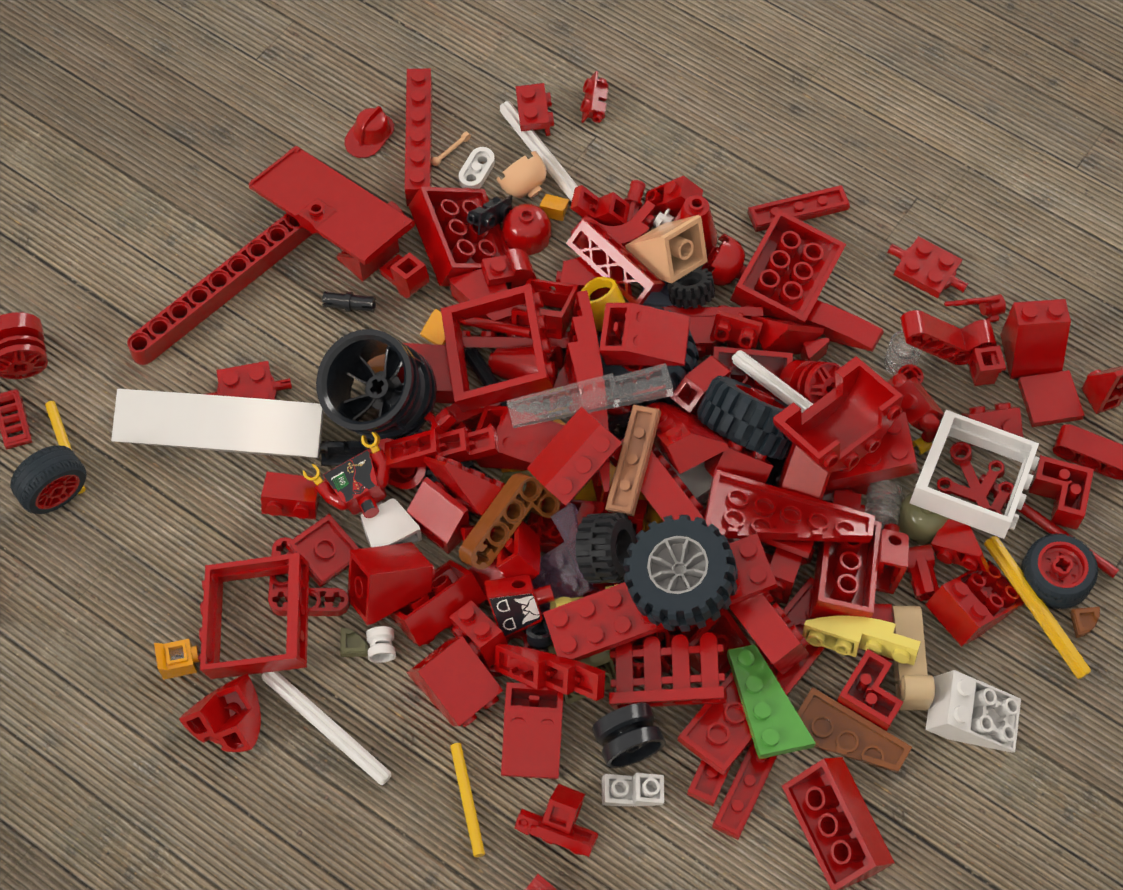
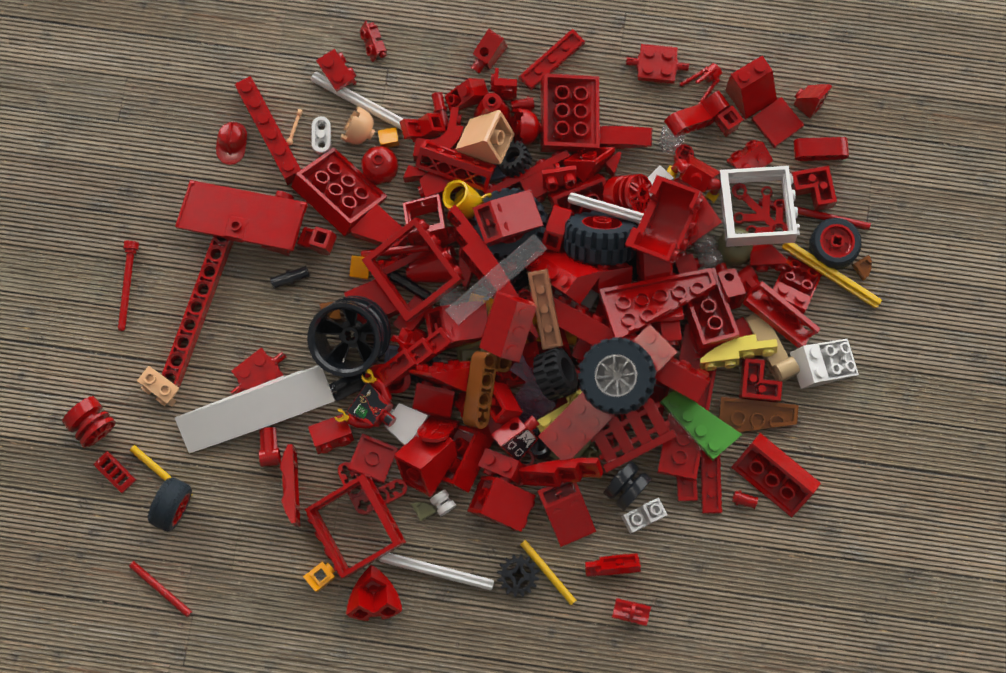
camera: 25 degrees left, 15 degrees up
(122, 345) = (156, 383): none -> light nougat bracket
(186, 189) = (130, 249): none -> red piece
(206, 483) = (269, 453): none -> red piece
(206, 528) = (290, 485): none -> red slope
(422, 548) = (436, 429): none -> red window
(431, 772) = (527, 576): none -> black gear
(491, 213) = (352, 161): black hinge -> none
(510, 269) = (387, 204): red brick -> none
(557, 254) = (413, 174): none -> red slope
(563, 808) = (611, 550): red brick -> none
(663, 218) = (468, 114): white plate -> none
(723, 205) = (503, 87): none -> red bracket
(725, 162) = (490, 44): none -> red torso
(744, 239) = (527, 103): none -> red pin
(779, 835) = (744, 499): none -> red pin
(938, 622) = (778, 316): none -> red fence

